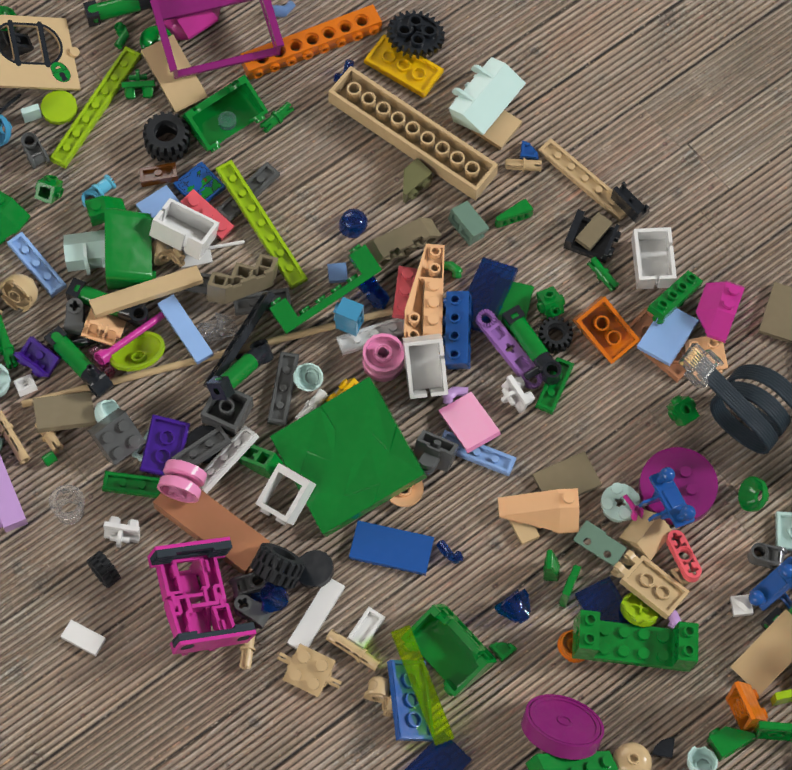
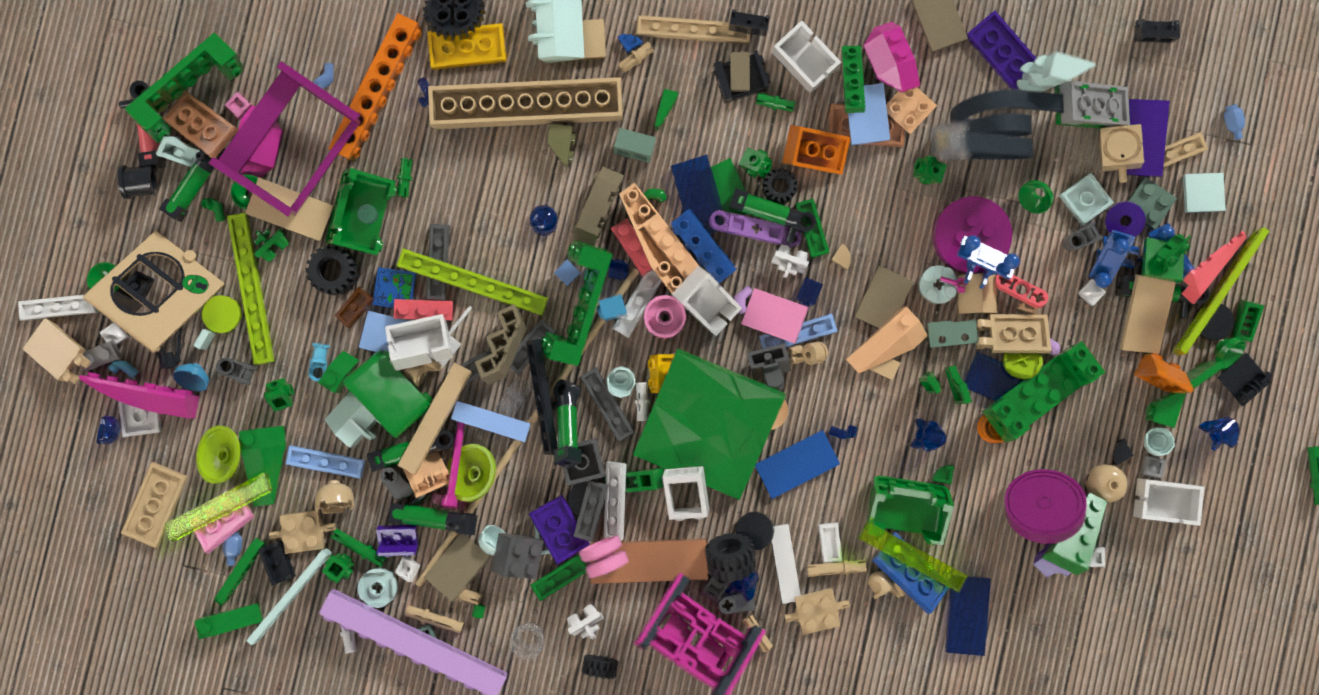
camera: 35 degrees left, 20 degrees up
(472, 471) = (811, 353): none -> tan piece
(511, 426) = (808, 292): none -> clear blue brick
(560, 424) = (842, 257): none -> tan tile

